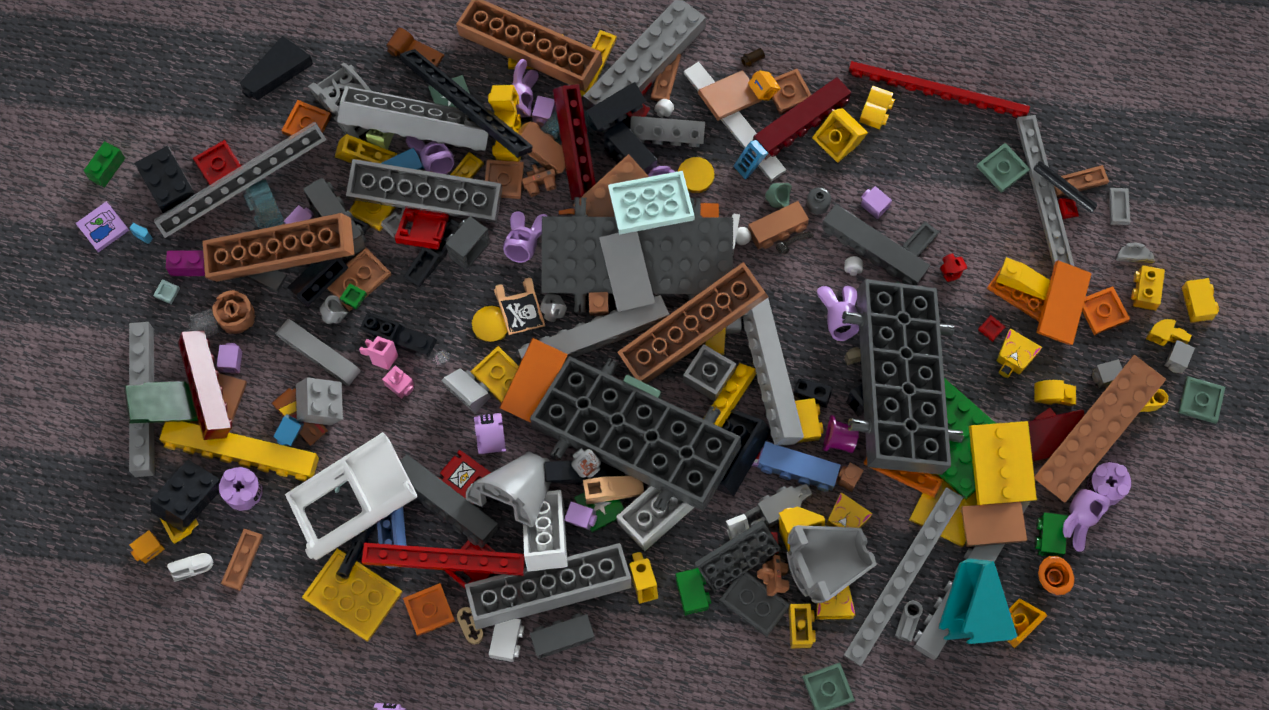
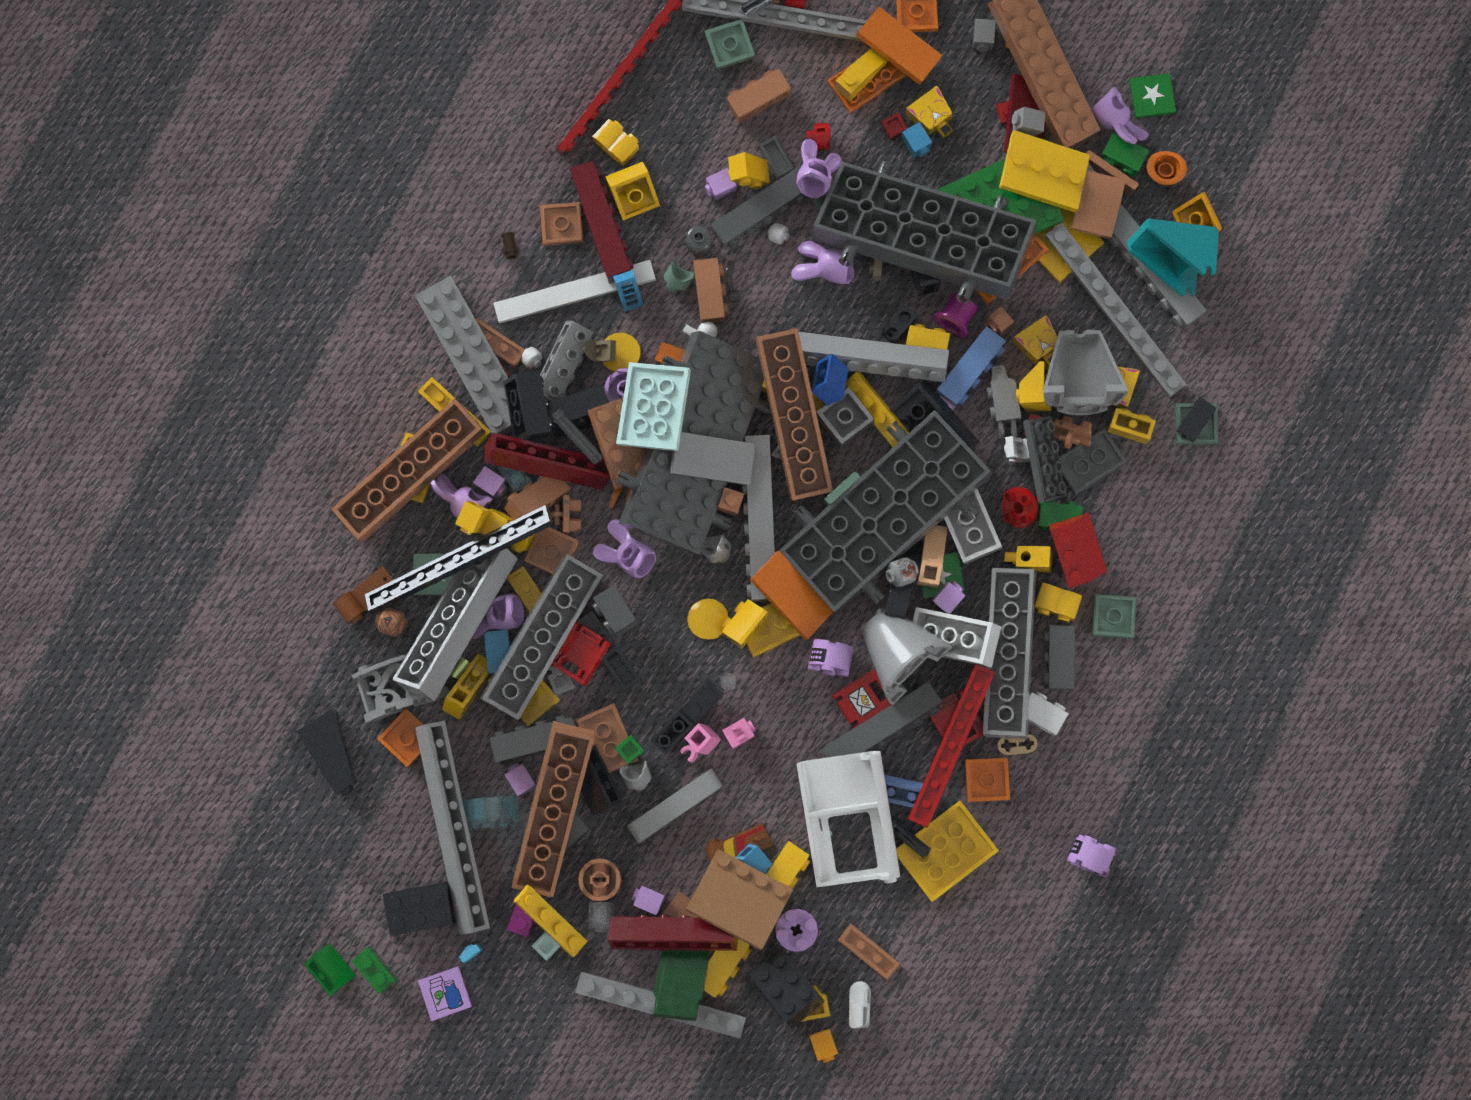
camera: 65 degrees left, 10 degrees up
(96, 131) = (329, 969): none -> green panel
(184, 283) = (550, 921): none -> yellow plate
(216, 162) = (417, 847): red tile -> none
(246, 424) = (739, 899): none -> medium nougat slope
(319, 401) = (734, 820): light grey brick -> none
(398, 77) = (391, 622): none -> nougat head
(466, 389) = (774, 665): light grey slope -> none
(493, 351) = (744, 623): none -> yellow slope
(520, 311) = (706, 583): flag -> none
(604, 155) = (576, 436): none -> dark grey axle
(612, 616) = (1057, 602): none -> yellow brick
(619, 673) = (1114, 616): none -> sand green tile
(665, 614) = (1078, 550): none -> red slope
(686, 551) = (1020, 507): none -> red plate
(689, 154) = (601, 350): none -> dark tan plate
(728, 95) = (546, 284): nougat tile -> none
(735, 344) = (830, 379): none -> blue brick
(763, 85) = (549, 246): light orange brick -> none
(830, 684) = (1196, 419): none -> black tile
(896, 217) = (748, 170): none -> yellow brick
(908, 623) = (1162, 324): light grey piece -> none
(914, 269) = (815, 174): none -> lavender piece
(967, 205) = (758, 95): none -> nougat brick
(986, 350) = (917, 140): none -> dark azure brick
(1031, 525) = (1105, 168): none -> nougat tile
(1043, 435) = (1028, 121): none -> light grey brick
(1054, 392) = (984, 93): yellow brick -> none
(1114, 475) = (1099, 71): lavender brick -> none
(1120, 543) = (1152, 96): none -> green tile

